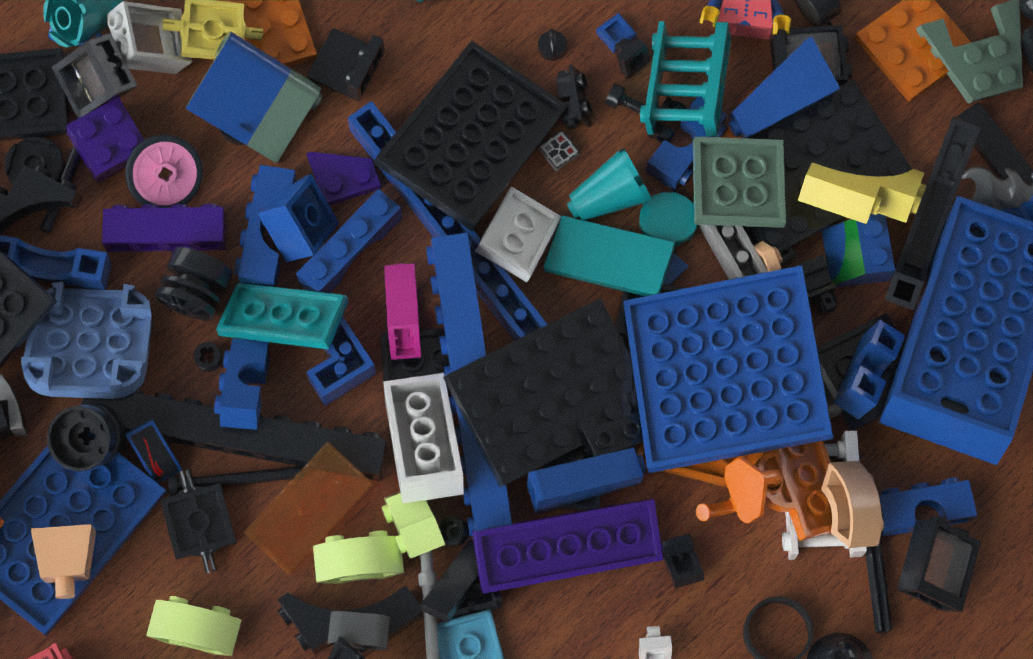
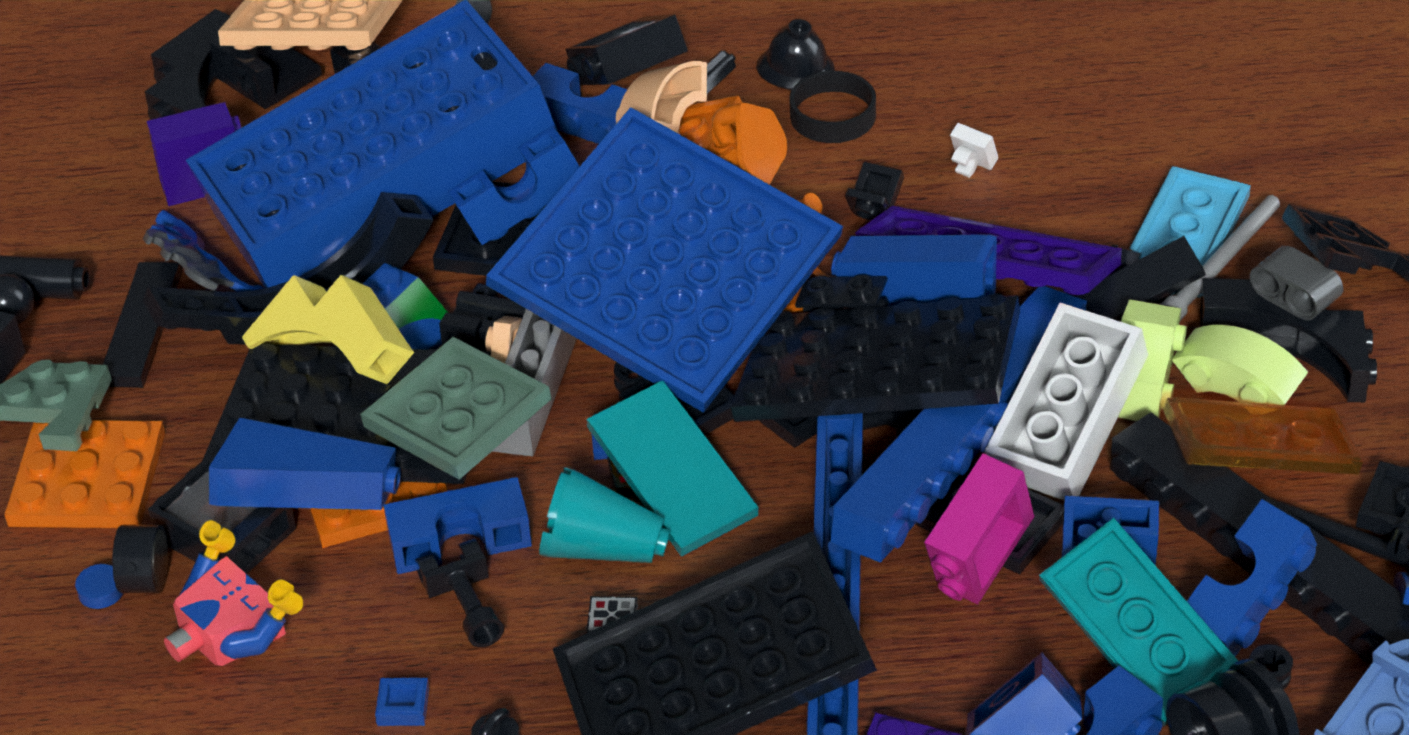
camera: 135 degrees left, 30 degrees down
(363, 228) = (925, 666): blue arch -> none
(518, 234) = (763, 522): white tile -> none
(574, 86) = (522, 669): black hinge -> none
(631, 56) = (417, 650): black tile -> none
(668, 218) = (549, 455): teal tile -> none
(710, 91) = (376, 519): teal fence -> none

